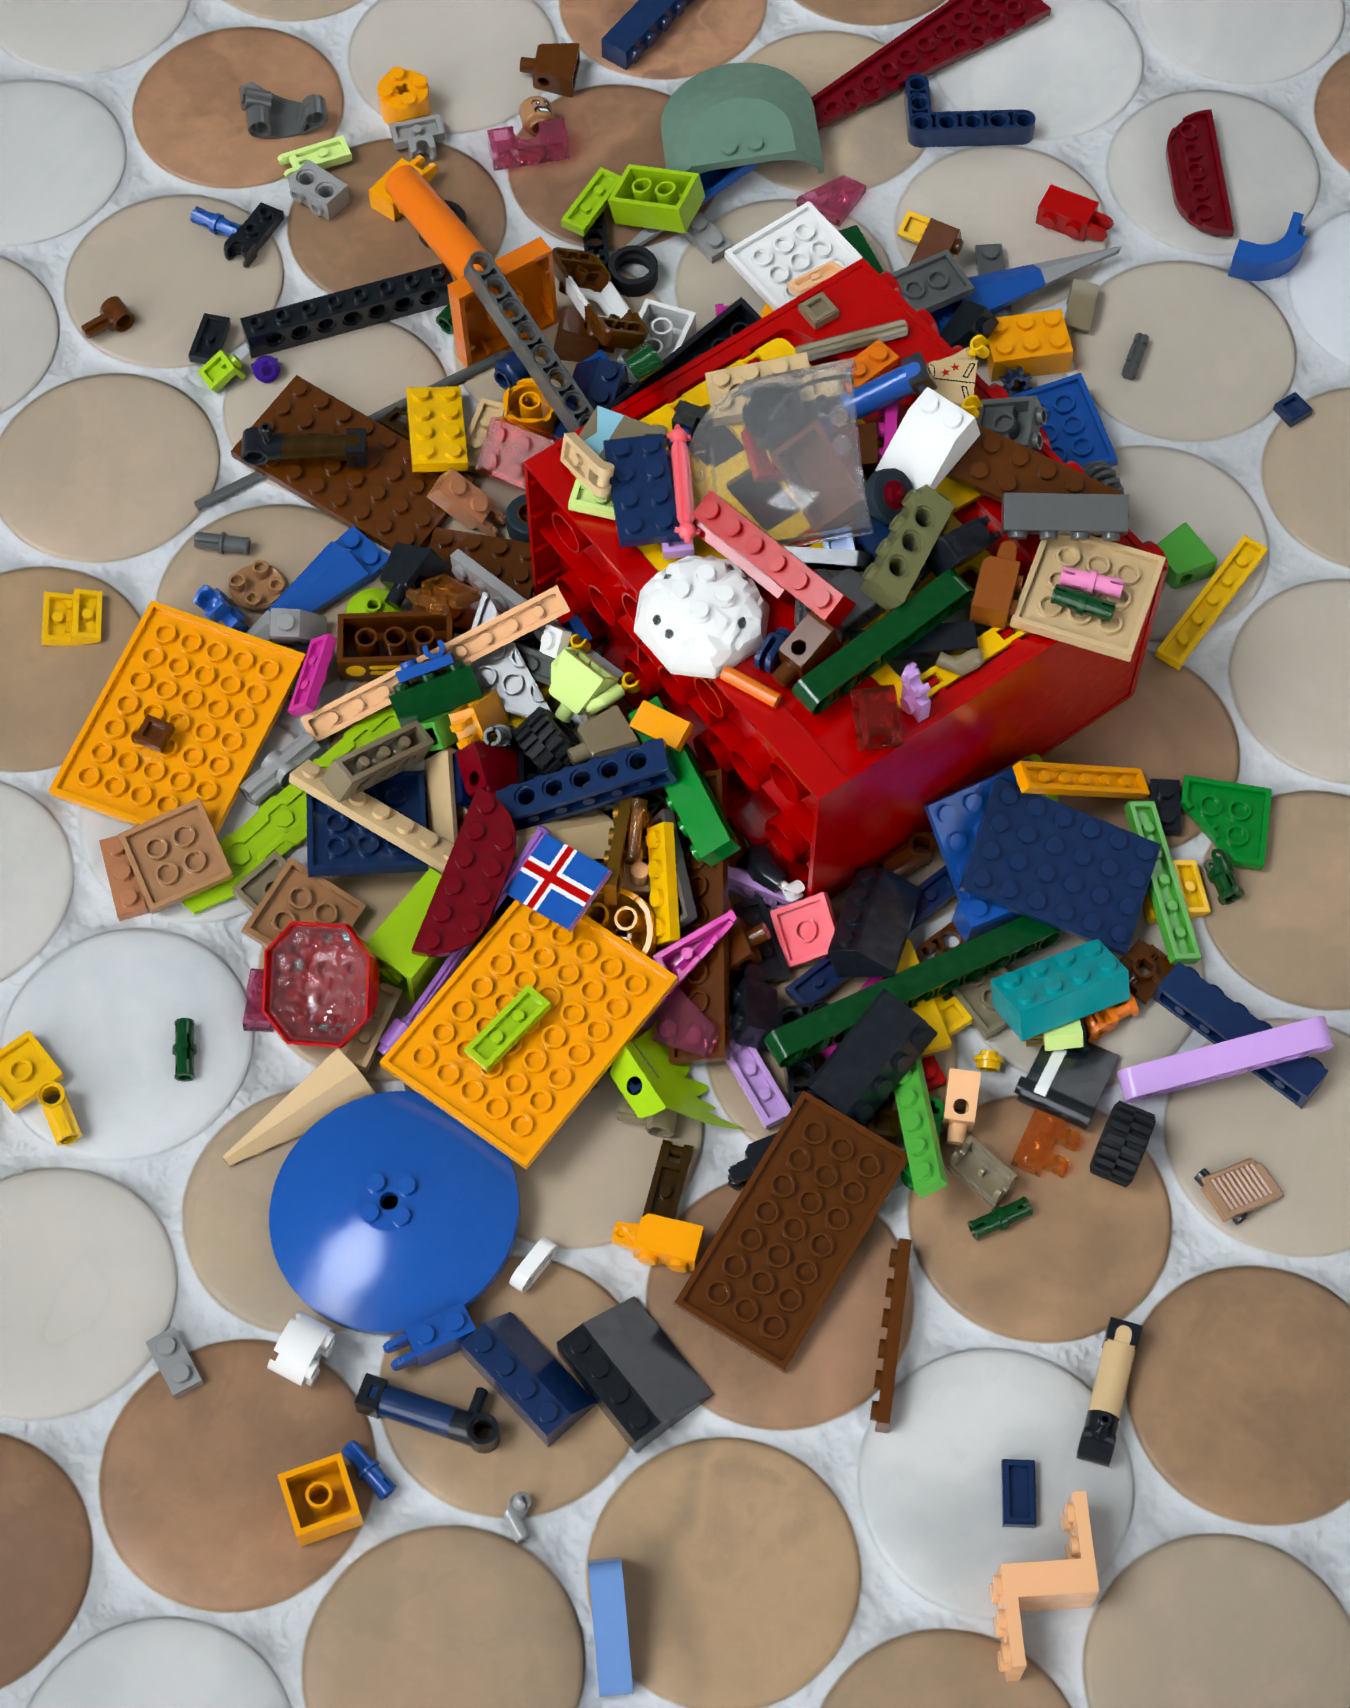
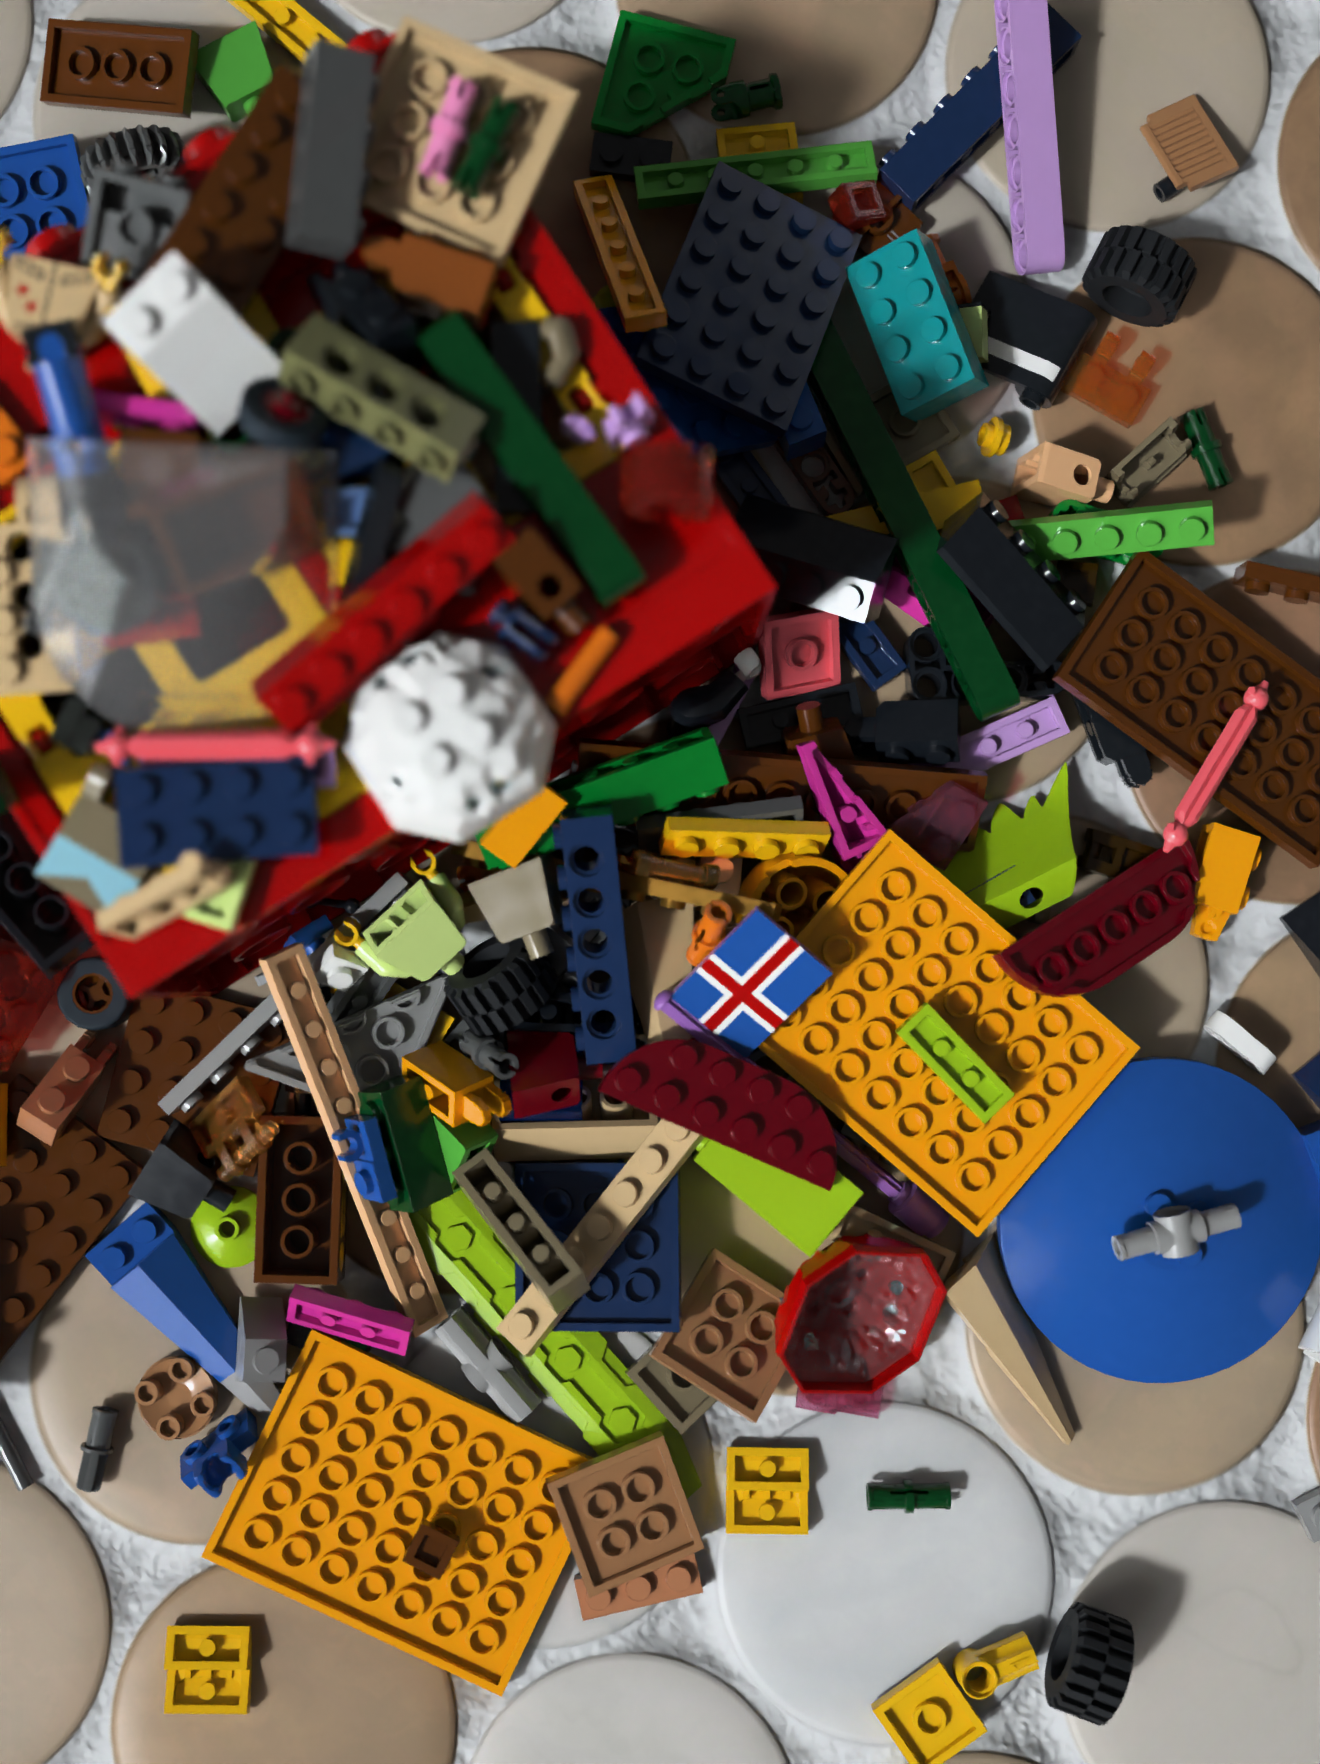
camera: 95 degrees left, 25 degrees up
(61, 1165) = (1089, 1663): none -> black tyre
(189, 955) = (767, 1490): none -> yellow slope
(387, 1190) = (1176, 1231): none -> light grey pin
(598, 849) = (708, 931): none -> orange pin
(617, 1139) = (1107, 927): none -> dark red plate
(745, 1211) = (1215, 766): none -> coral wheel
(1150, 950) = (857, 204): none -> clear red slope
(1169, 485) = (119, 67): none -> reddish brown plate

